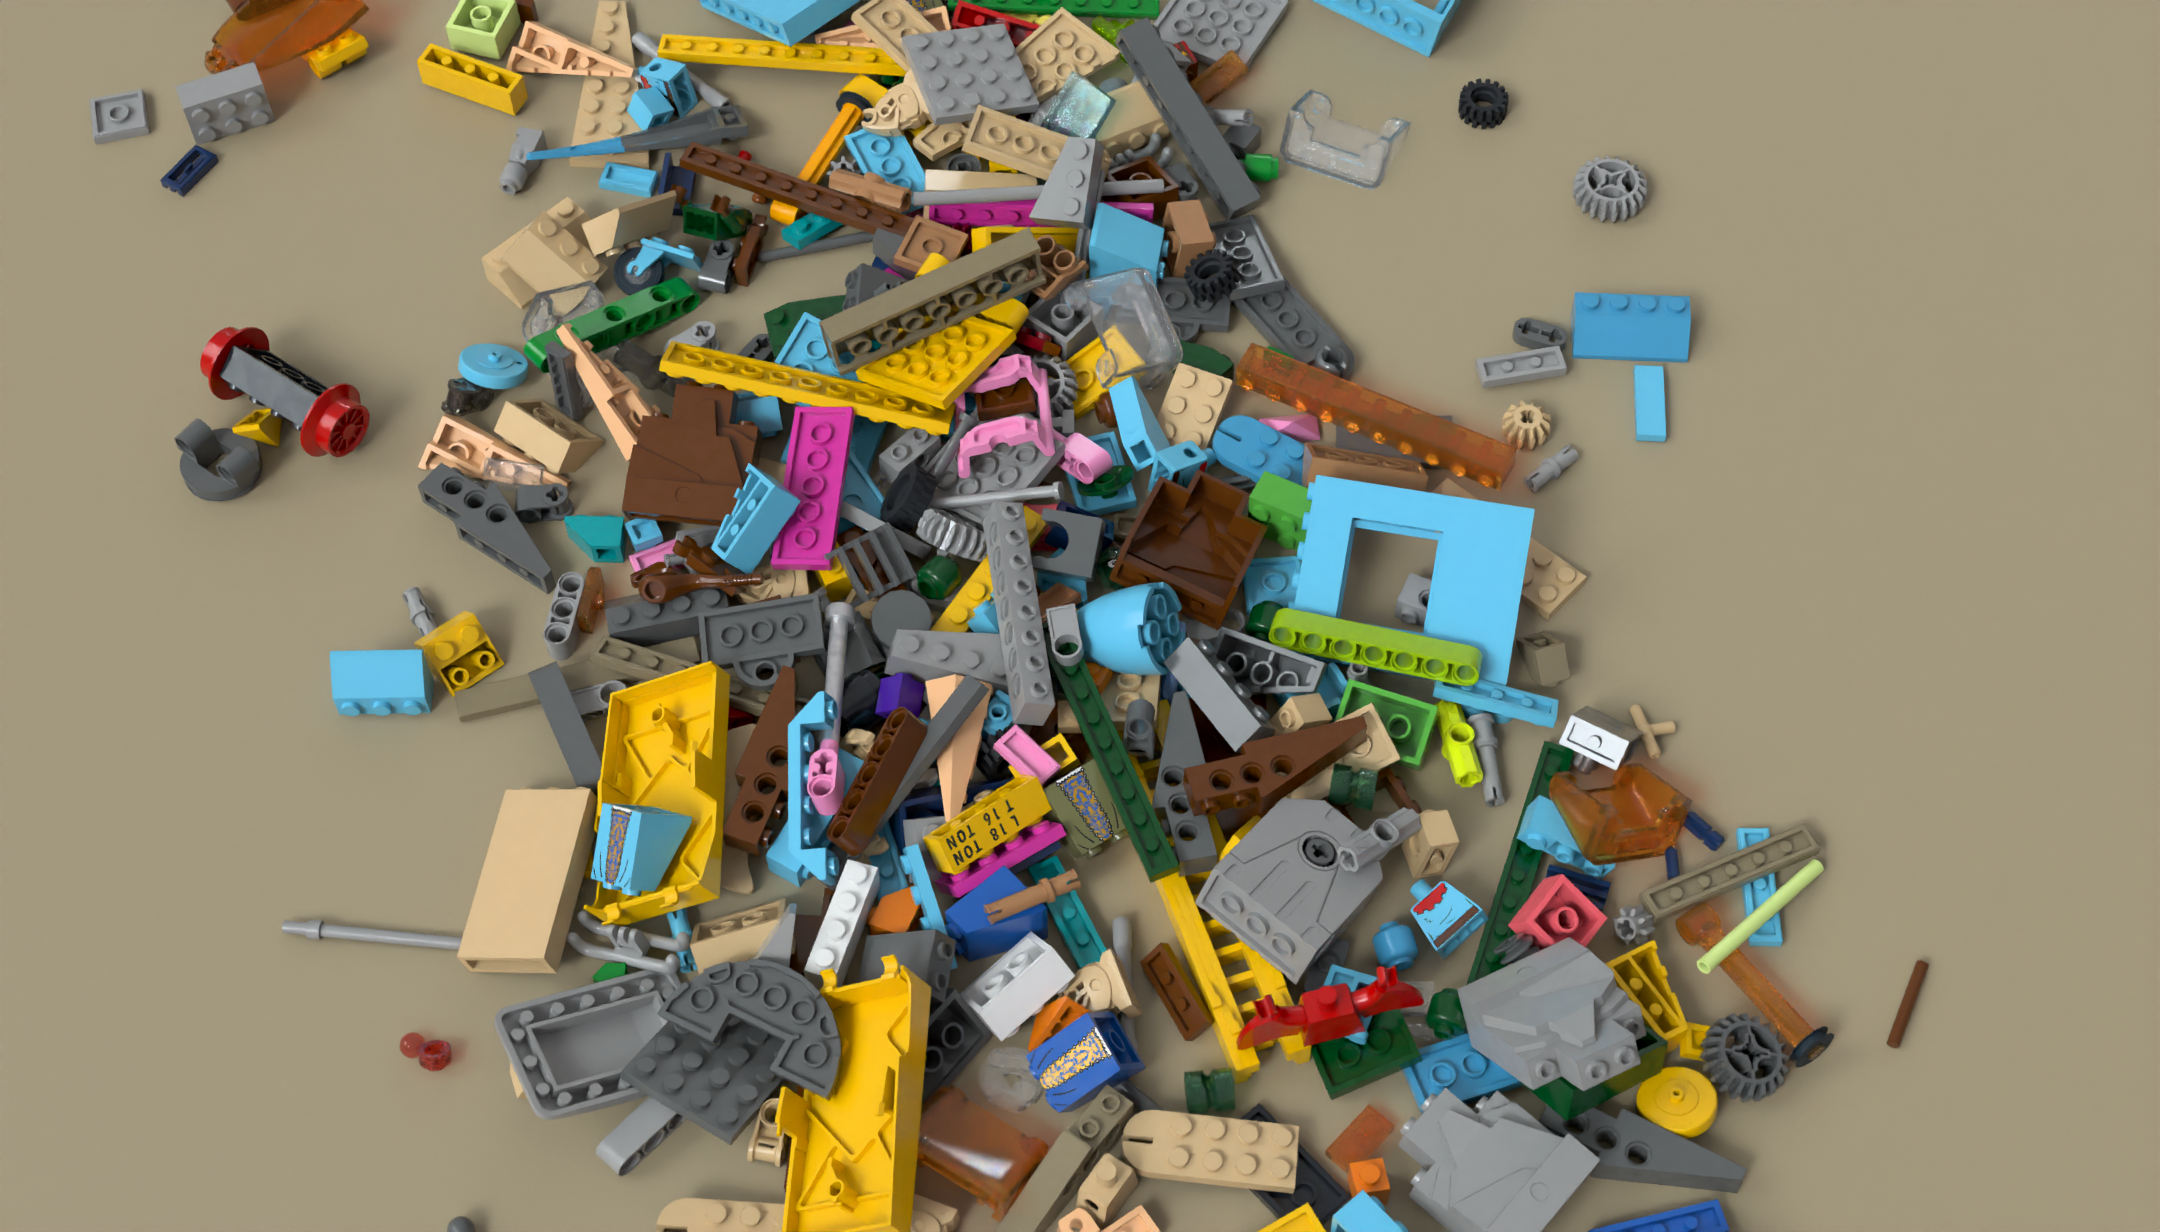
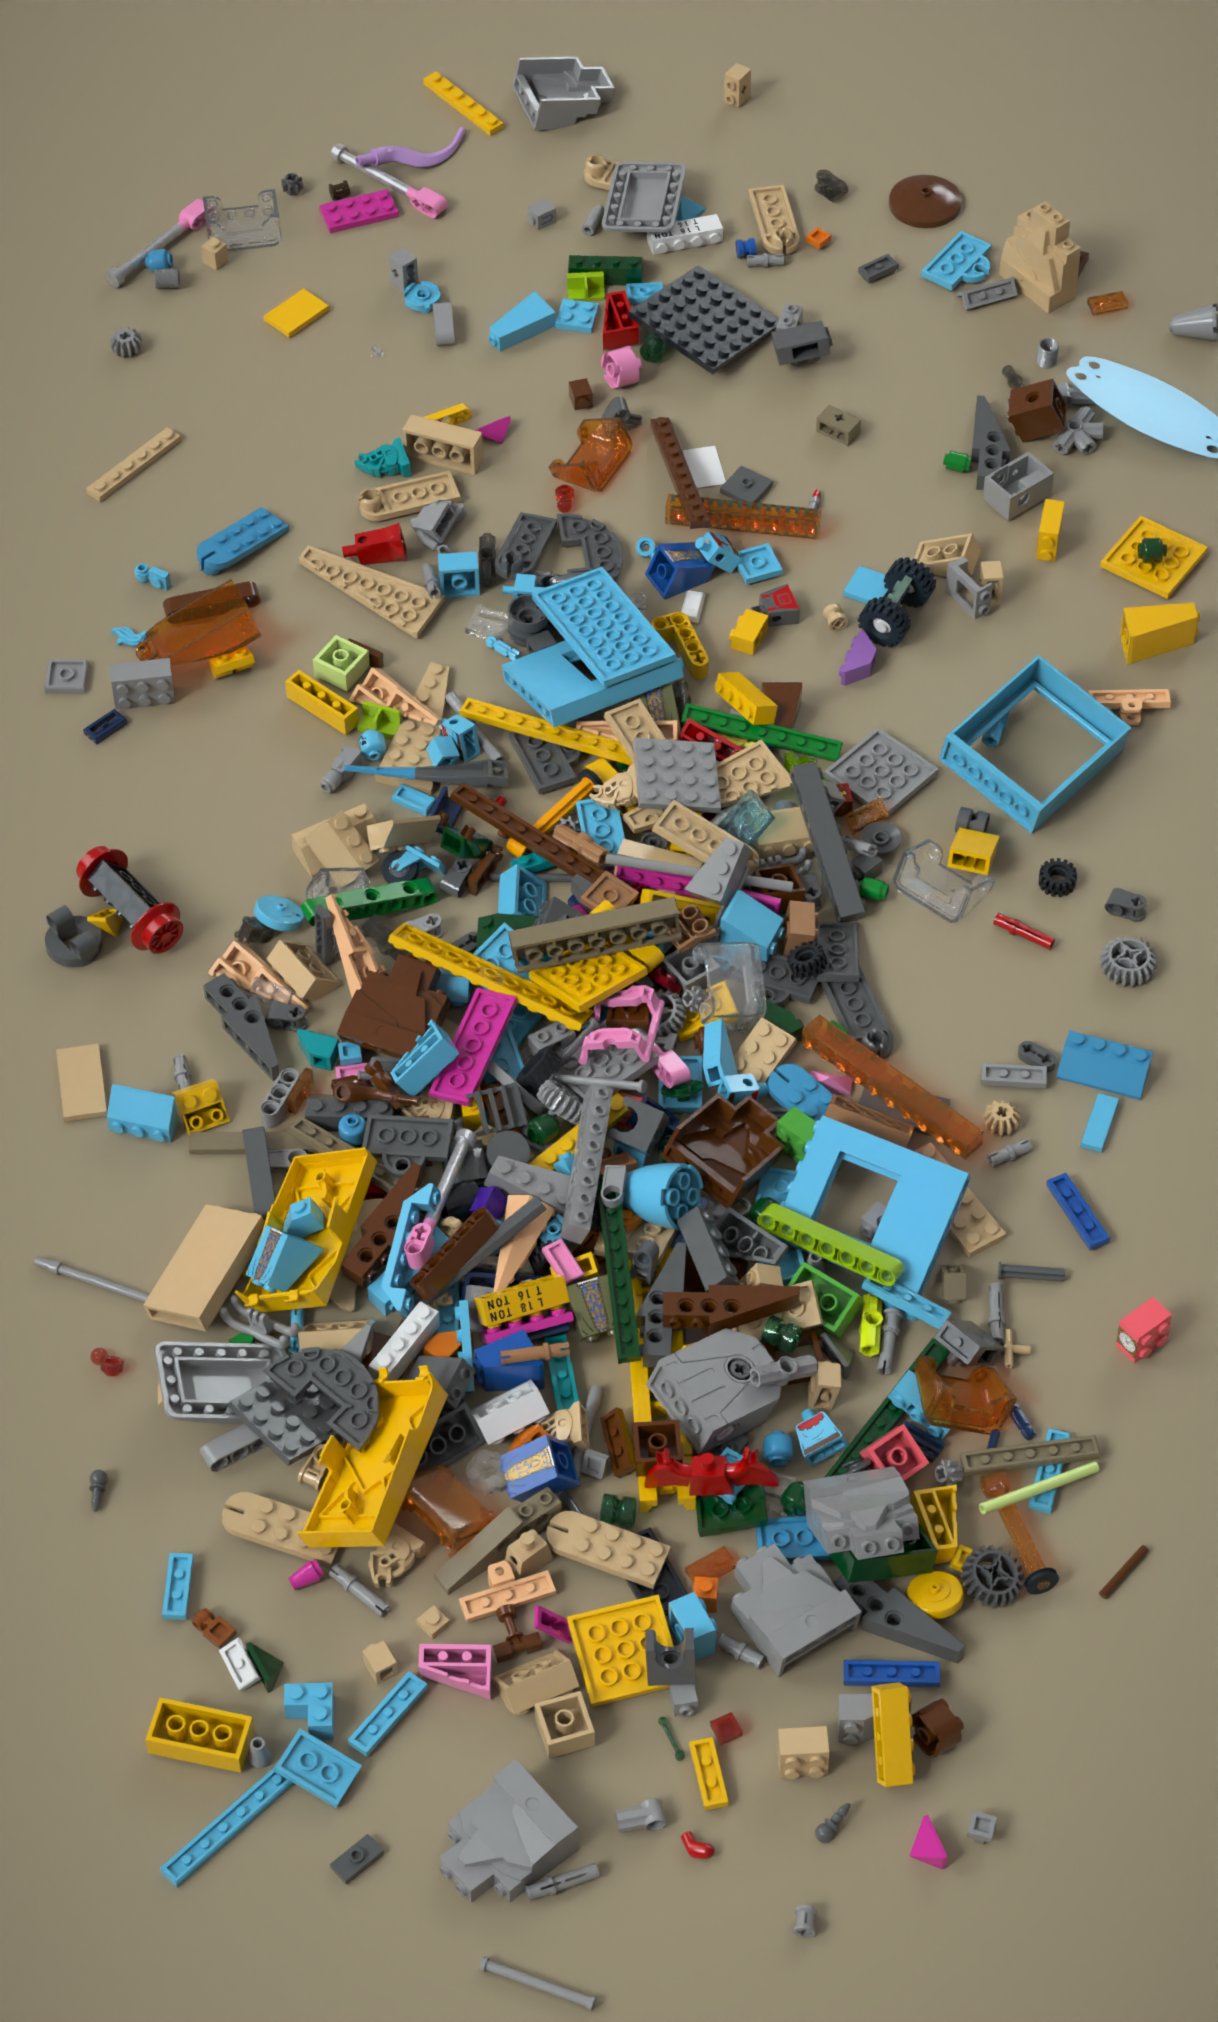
camera: 15 degrees right, 5 degrees down
(189, 49) = (128, 637): none -> medium azure piece
(283, 657) = (81, 1082): none -> tan tile
(554, 87) = (379, 718): none -> lime panel
(554, 119) = (372, 745): none -> medium azure head
(650, 780) = (304, 1218): none -> medium azure slope
(680, 637) = (352, 1130): none -> dark azure head
(786, 95) = (545, 762): none -> dark grey plate
(808, 269) = (521, 892): none -> medium azure slope
(1084, 358) = (694, 998): none -> light grey gear
(1154, 1030) = (595, 1463): none -> light grey tile
(1234, 983) = (652, 1437): none -> reddish brown brick
(1248, 95) = (883, 835): none -> dark grey dish
(1354, 58) = (973, 821): none -> dark grey wheel
(1370, 93) = (973, 851): none -> yellow brick
(1426, 791) = (838, 1353): none -> flat silver slope
(1464, 179) = (1016, 927): none -> red pin
(1578, 118) = (1125, 903): none -> dark grey piece
(1617, 698) = (996, 1321): none -> light grey pin
(1635, 621) = (1030, 1272): none -> dark grey axle
(1667, 526) = (1078, 1211): none -> blue plate
(1816, 665) = (1144, 1330): none -> coral brick

